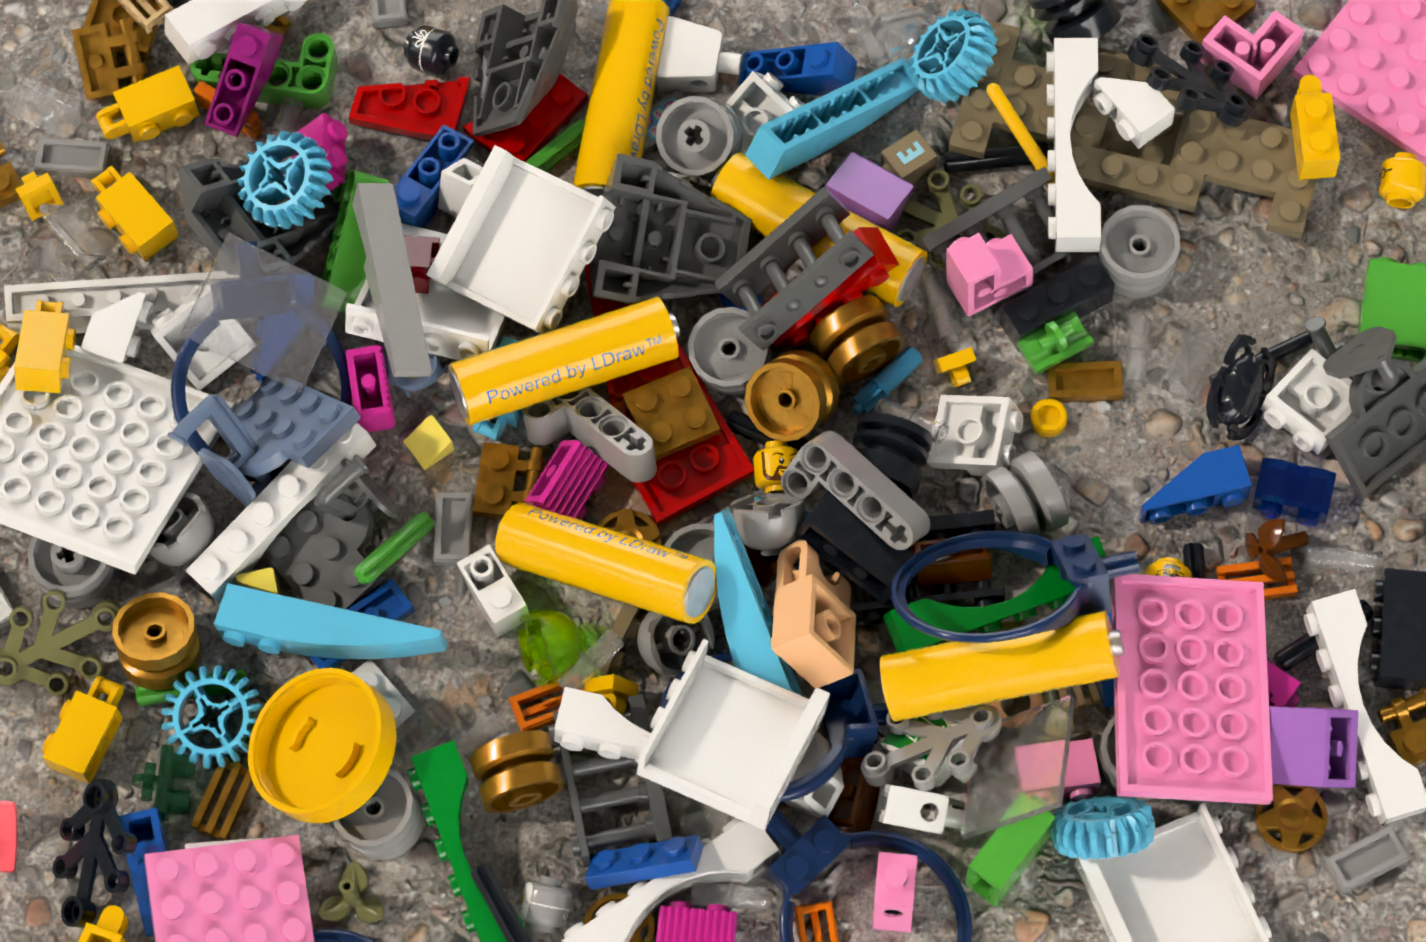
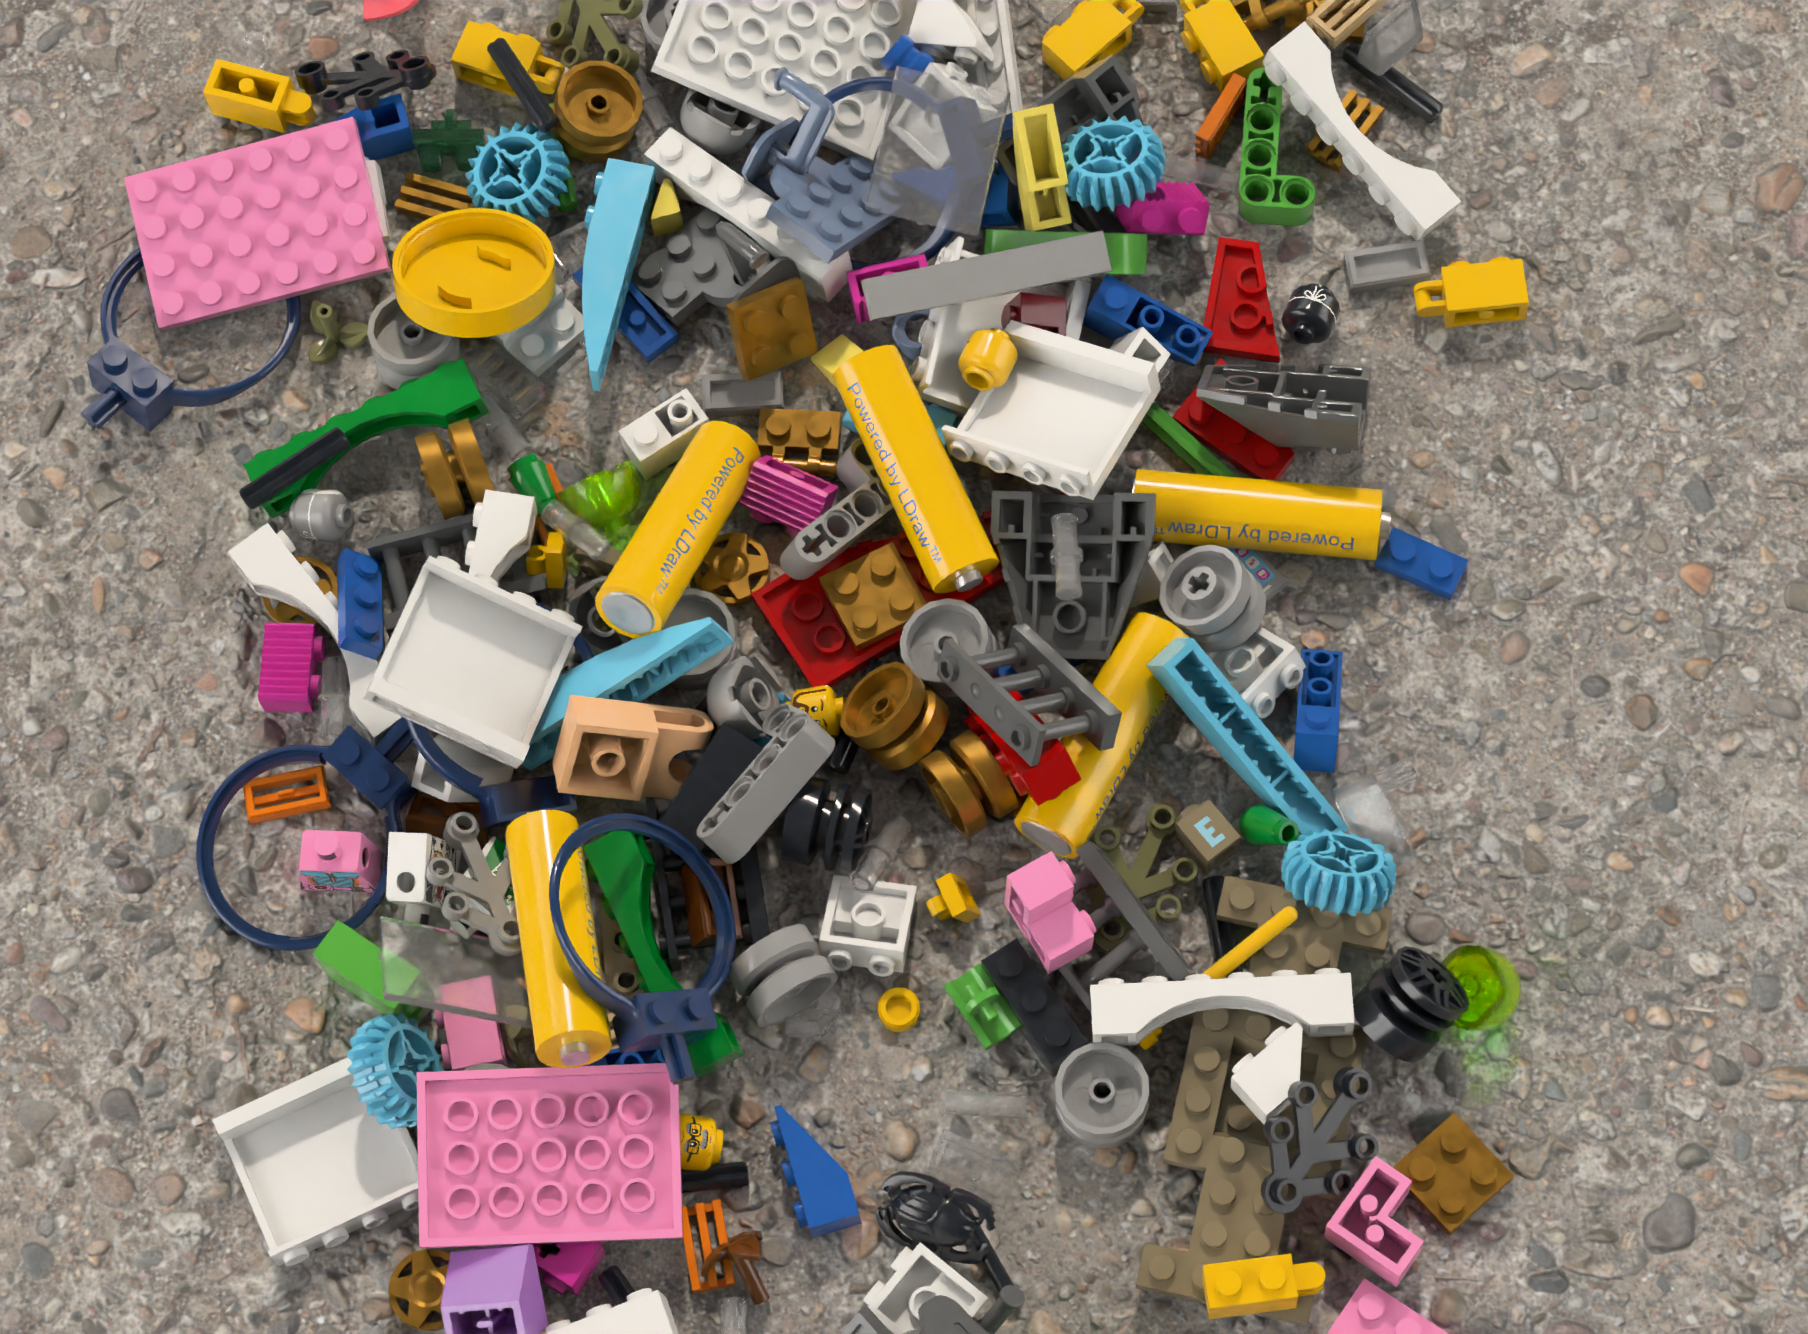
camera: 90 degrees right, 0 degrees up
(125, 700) = (522, 85): none -> black axle
(143, 362) = (906, 55): none -> blue wheel
(243, 77) = (1249, 116): magenta slope -> none
(290, 234) = (1040, 168): none -> light yellow slope
(393, 548) = (698, 322): bright green axle -> none
(404, 487) = (771, 328): none -> pearl gold plate
(463, 295) = (987, 359): none -> yellow head
(534, 706) = (532, 479): none -> green cone
(661, 237) = (1066, 556): none -> clear pin
(693, 58) = (1323, 591): white torso -> none
(870, 191) = (1155, 788): medium lavender slope -> none
(886, 381) = (933, 828): dark azure piece -> none
(906, 110) = (1266, 826): none -> green cone
(1086, 381) = (945, 1048): pearl gold tile -> none
(1294, 491) = (813, 1283): clear blue brick -> none

